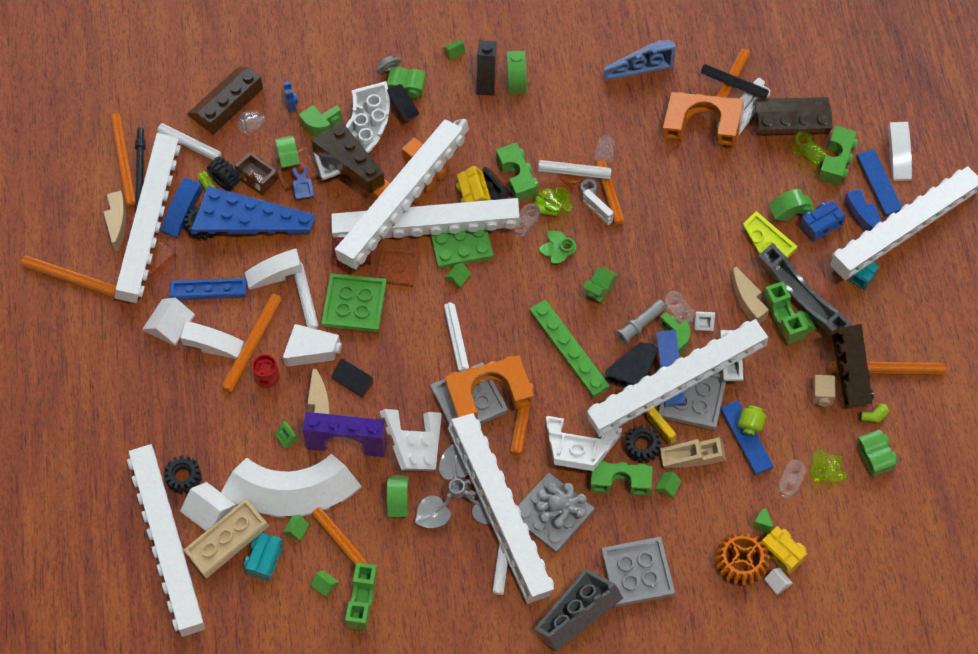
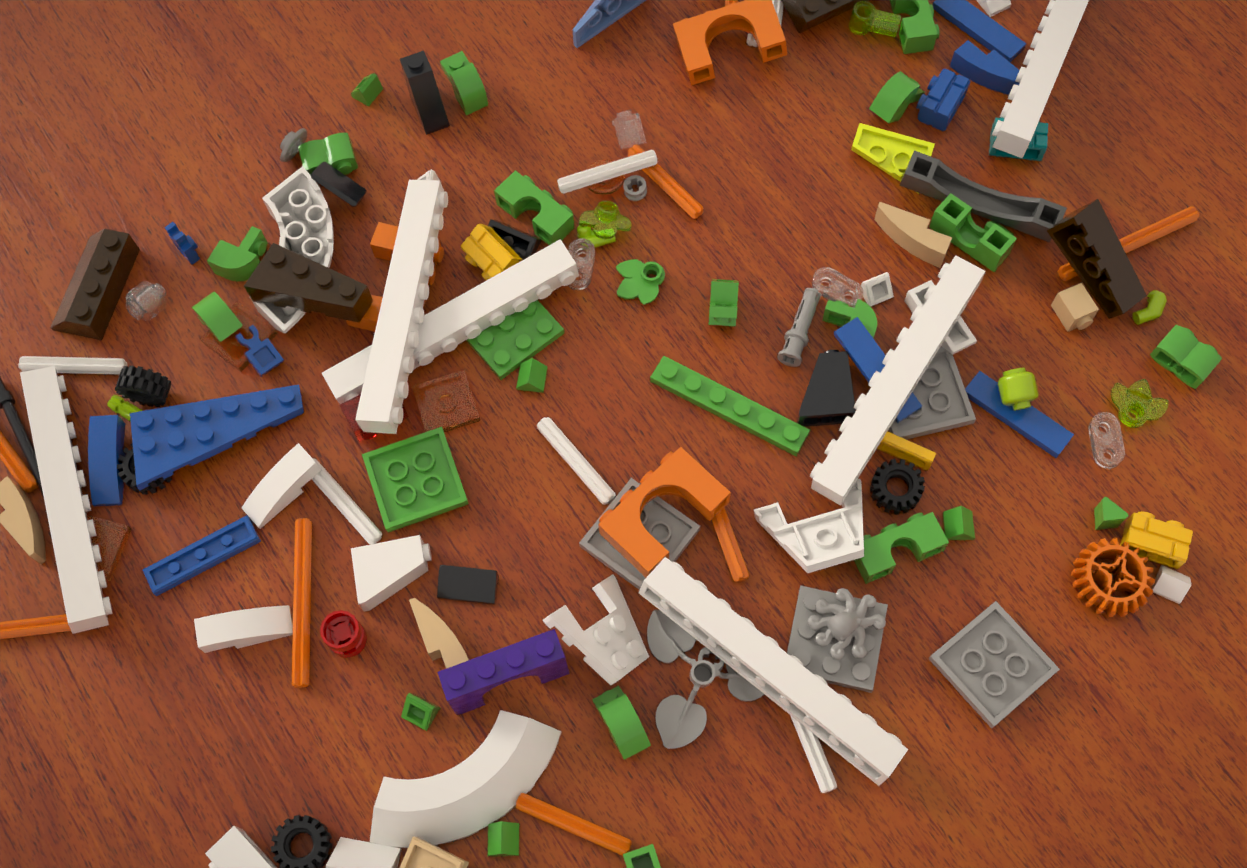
camera: 25 degrees left, 5 degrees up
(168, 320) = (168, 627): white slope -> none
(256, 173) = (188, 365): reddish brown window -> none
(577, 609) = (954, 759): dark grey wedge -> none
(598, 207) = (662, 206): white tile -> none
(693, 453) = (967, 468): tan slope -> none

